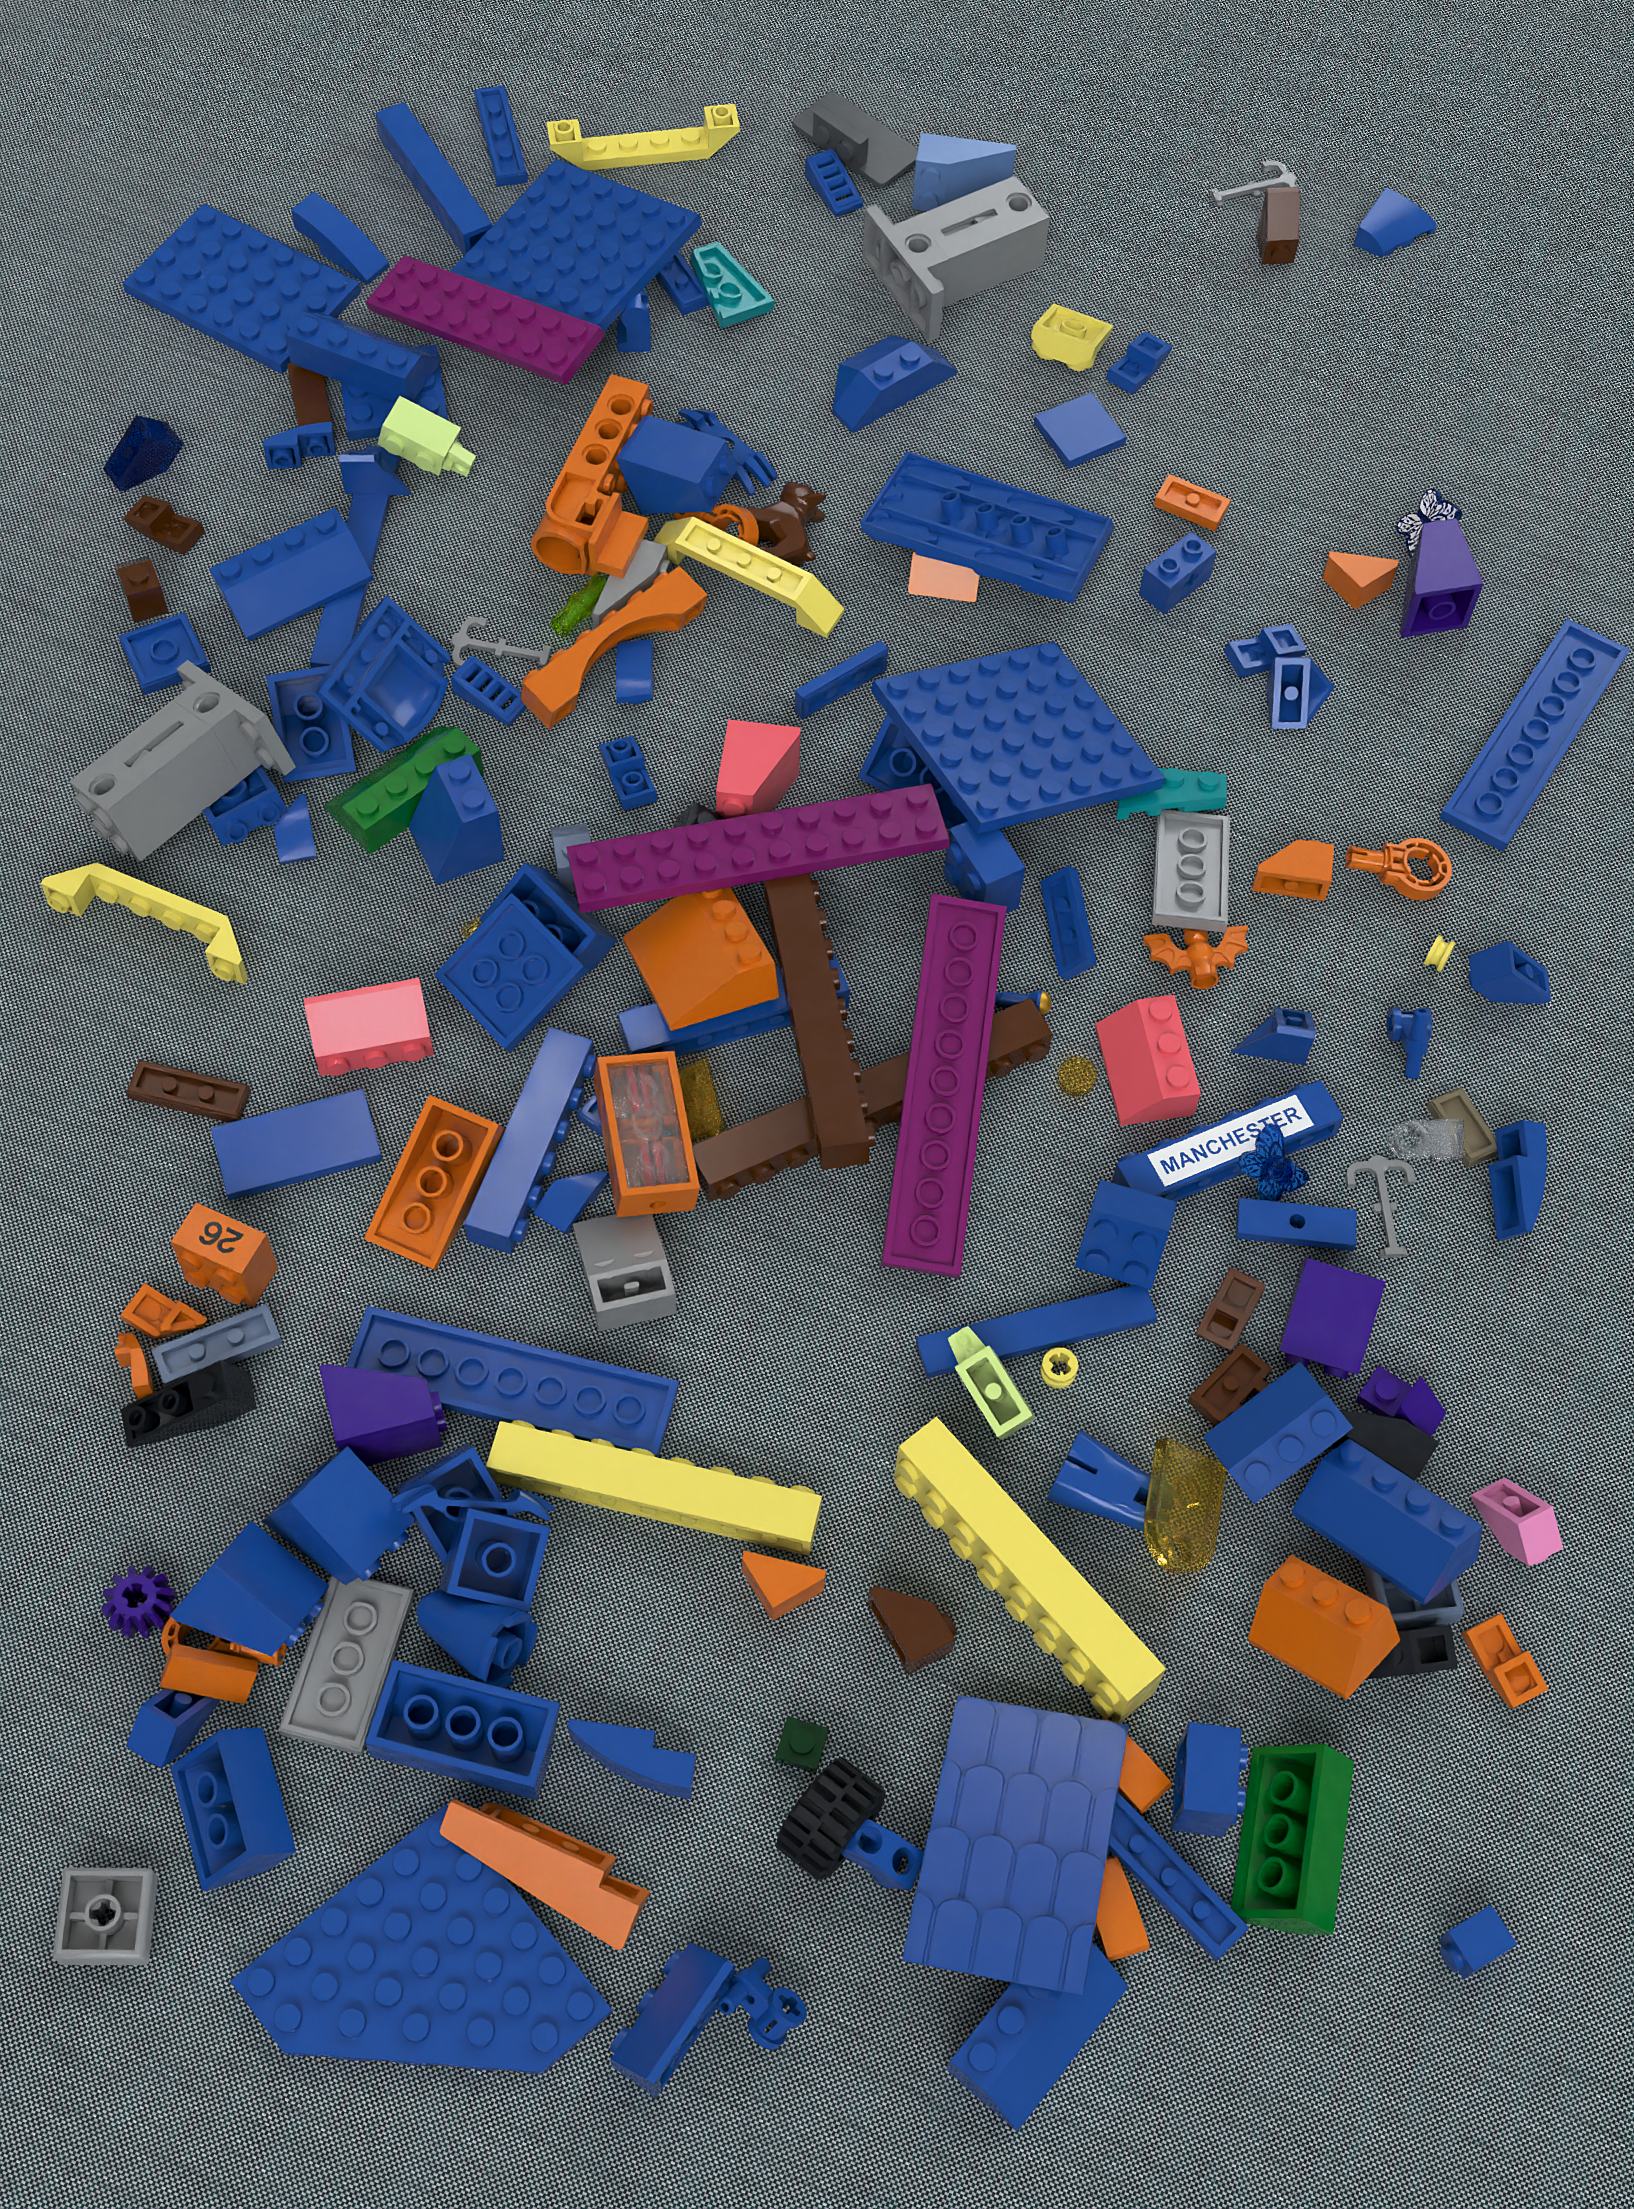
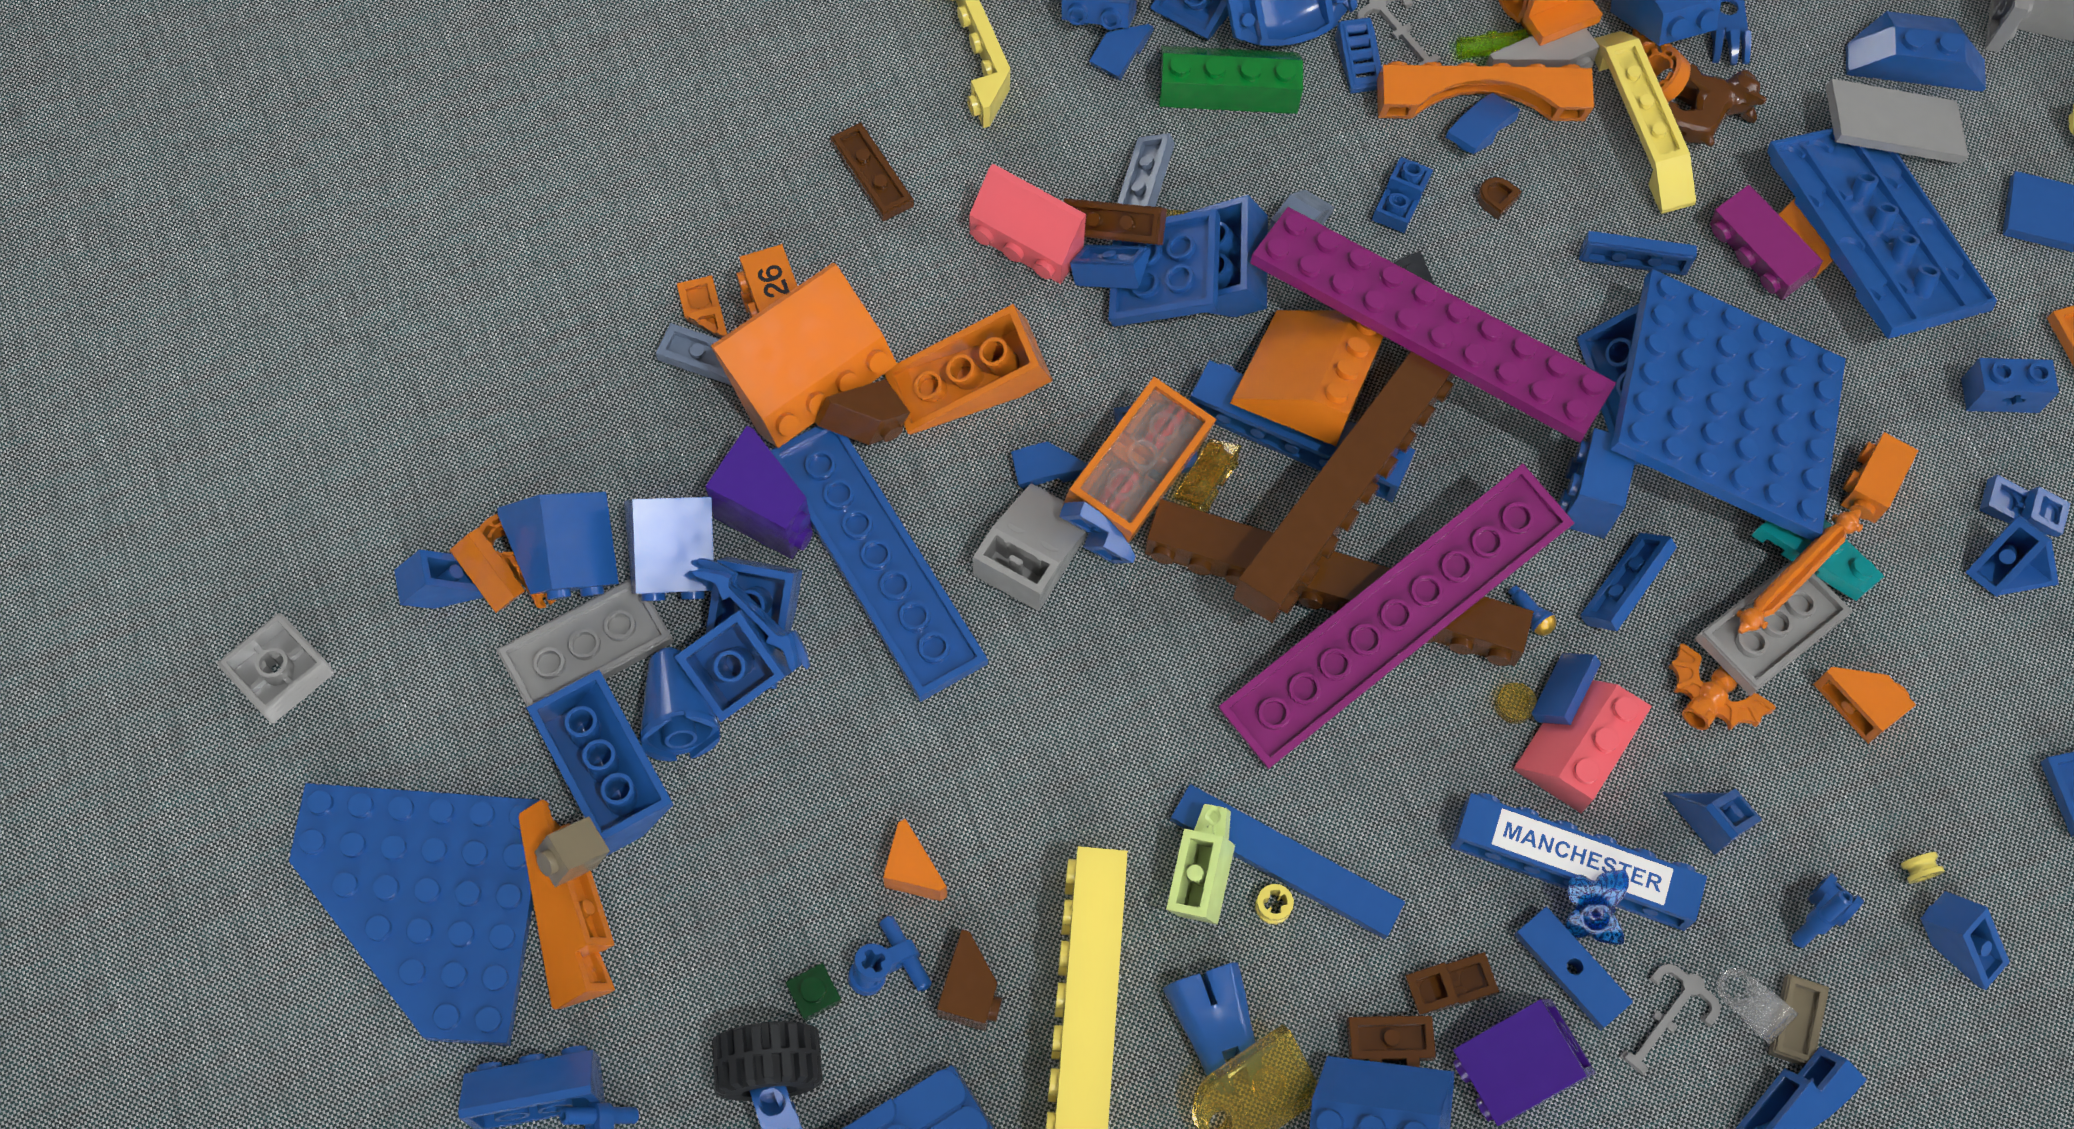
camera: 45 degrees right, 5 degrees up
(131, 1354) = (653, 328): orange slope -> none
(131, 1588) = (492, 471): dark purple gear -> none
(190, 1405) = (659, 382): black slope -> none
(232, 1807) = (419, 673): blue slope -> none
(296, 1144) = (905, 267): blue tile -> none
(302, 1276) = (801, 352): none -> orange slope
(393, 1280) = (865, 413): none -> reddish brown slope
(422, 917) = (1147, 170): none -> sand blue plate
(444, 962) = (1122, 221): none -> reddish brown tile
(457, 822) = (1235, 129): blue slope -> none
(465, 1006) = (1110, 266): none -> blue slope
(522, 1812) = (571, 851): none -> dark tan brick
(530, 1141) = (1059, 399): brick -> none
(635, 1757) = (695, 891): blue slope -> none
(654, 1487) = (898, 721): light yellow brick -> none
(672, 1211) = (1103, 535): none -> blue slope
(697, 718) = (1497, 196): none -> reddish brown tile
(756, 767) = (1494, 265): coral slope -> none
(831, 1673) = (875, 962): none -> blue piece
(921, 600) = (1765, 243): none -> magenta brick
(924, 441) = (1896, 121): none -> light grey tile
(1102, 1035) = (1566, 688): none -> blue tile
(1125, 1234) = (1420, 851): blue brick -> none
(1156, 708) = (1879, 477): none -> orange brick
(1175, 817) = (1799, 571): none -> orange wheel
(1393, 870) = (1952, 767): orange pin -> none

